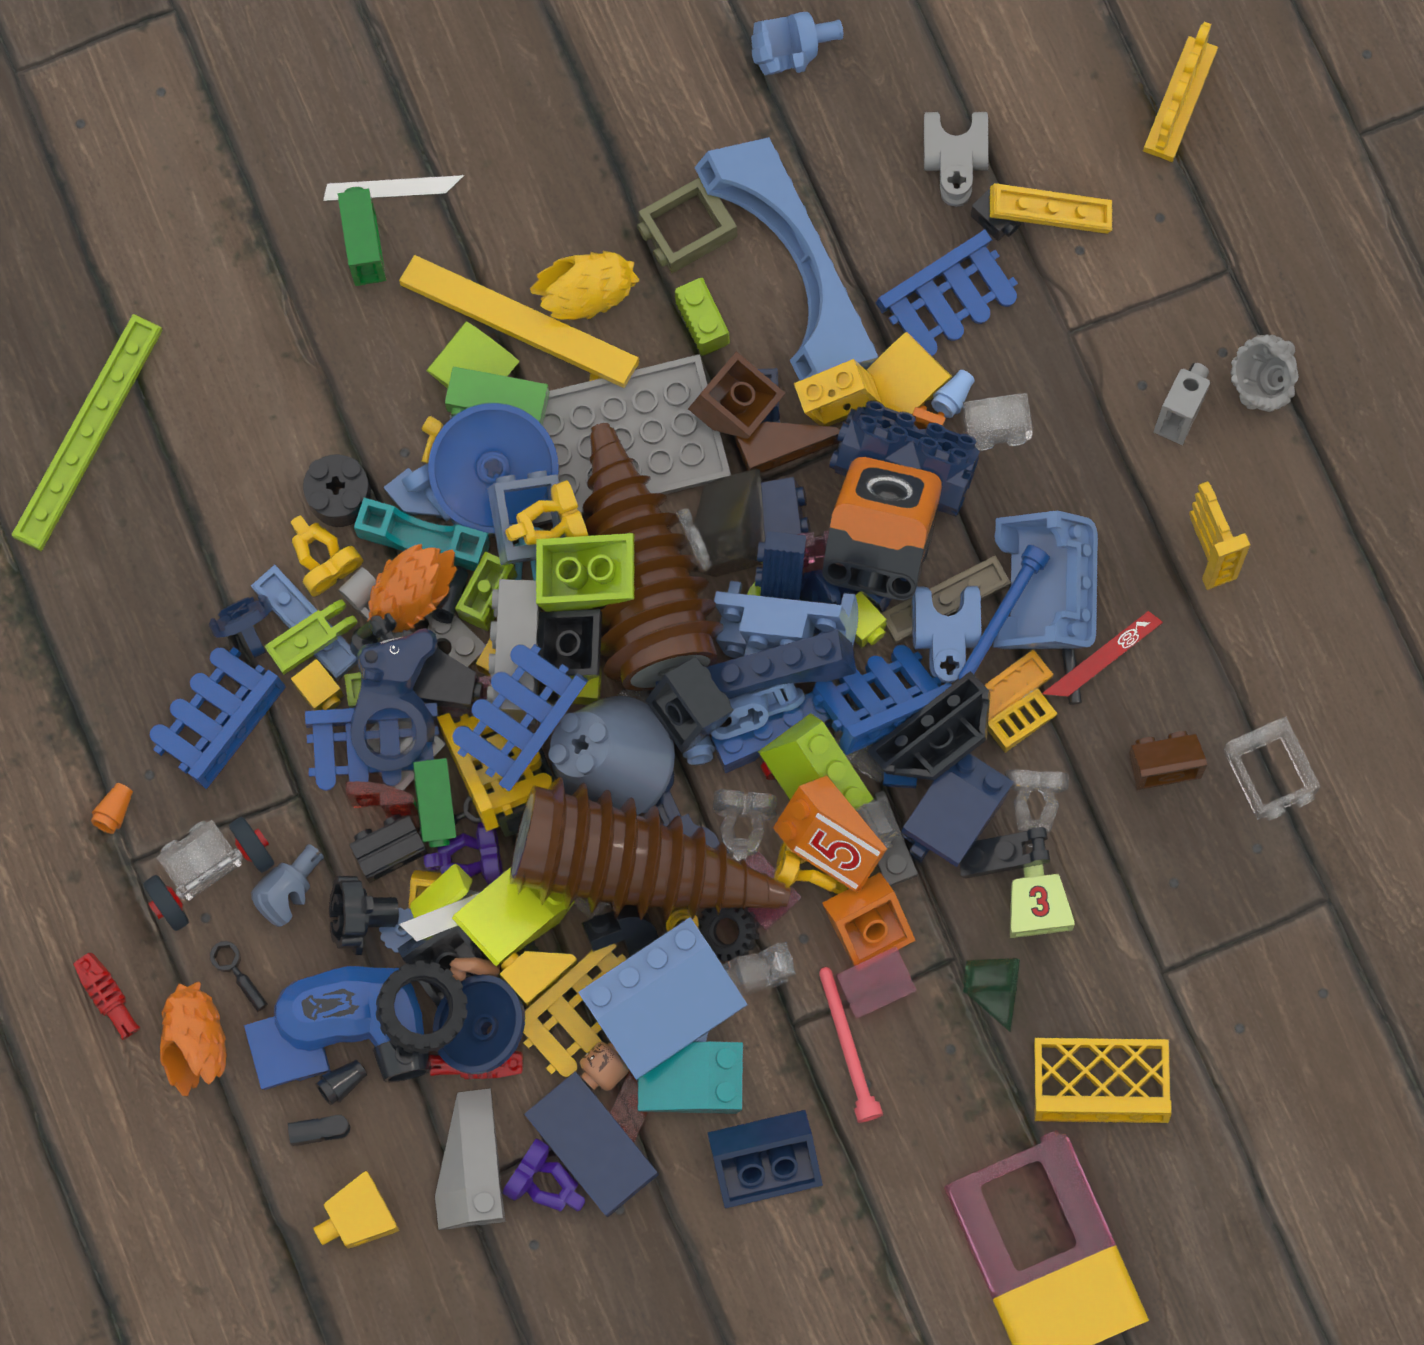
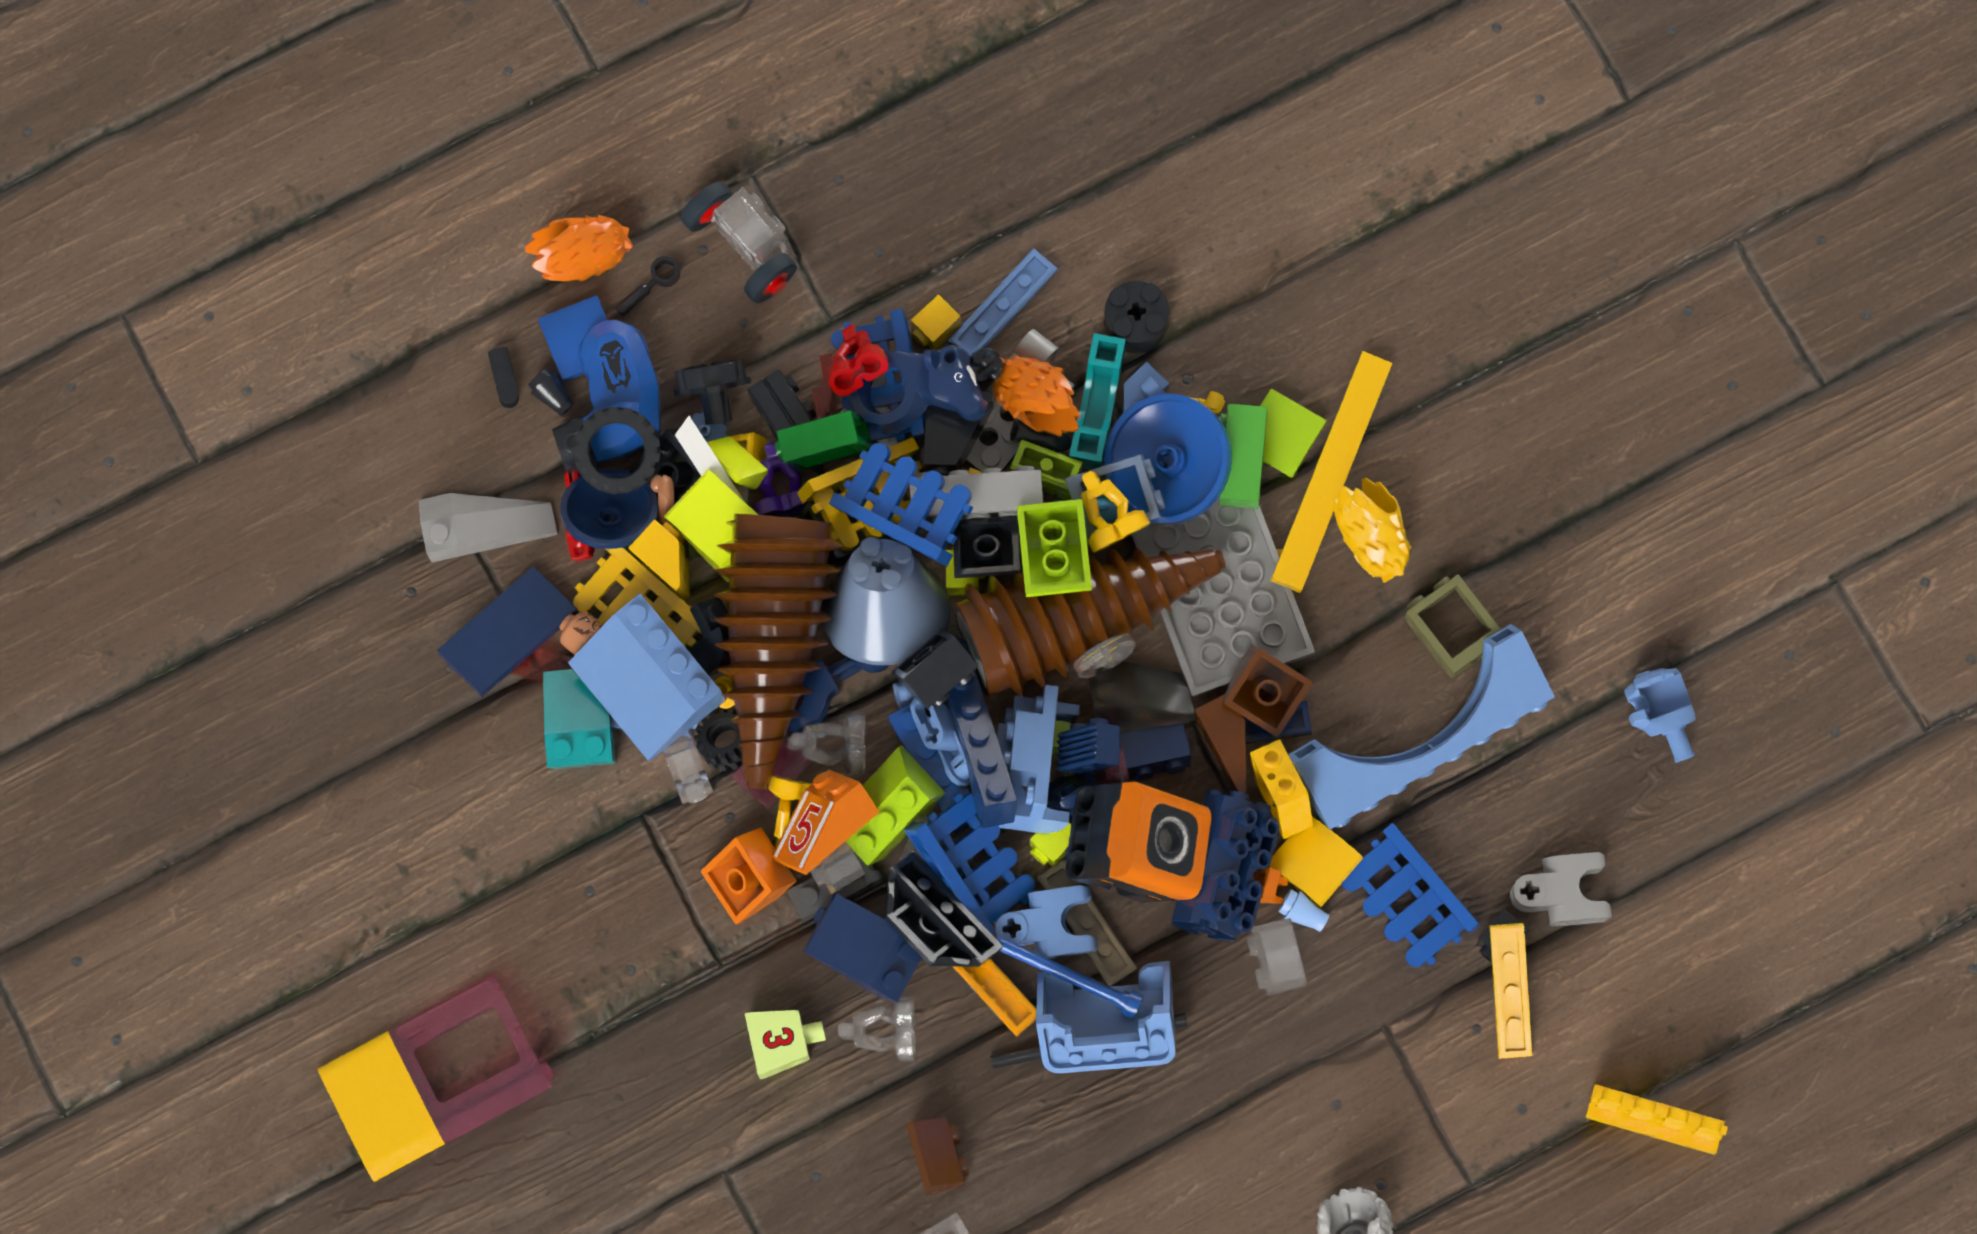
camera: 85 degrees right, 0 degrees up
(87, 432) = (1176, 75): lime tile -> none
(105, 994) = (619, 165): red hinge -> none
(112, 809) = (799, 148): orange cone -> none
(231, 727) = (893, 250): blue fence -> none
(241, 618) = (993, 242): dark blue tile -> none
(272, 891) = (738, 313): sand blue piece -> none
(308, 637) = (982, 306): lime hinge -> none
(339, 565) = (1050, 315): yellow piece -> none
(356, 1214) = (425, 422): yellow torso -> none
(361, 236) = (1400, 306): green window -> none
(365, 742) = (868, 362): none -> red piece
(396, 187) = (1463, 333): white sticker -> none
(535, 1162) = (469, 571): dark purple piece -> none
(702, 316) = (1356, 650): lime brick -> none
(765, 1158) = (506, 797): dark blue slope -> none
(866, 1106) = (567, 890): coral piece -> none
(876, 982) = (688, 888): clear pink plate -> none
(993, 986) = (694, 1005): clear green slope -> none
(1000, 735) = (946, 989): yellow slope -> none
(1005, 853) = (826, 1001): black plate -> none
(1104, 655) = (1043, 1087): red sticker -> none
(1108, 1107) = (581, 1125): yellow fence -> none
(1183, 403) = (1304, 1138): light grey torso -> none
(1223, 551) = (1143, 1188): yellow fence -> none

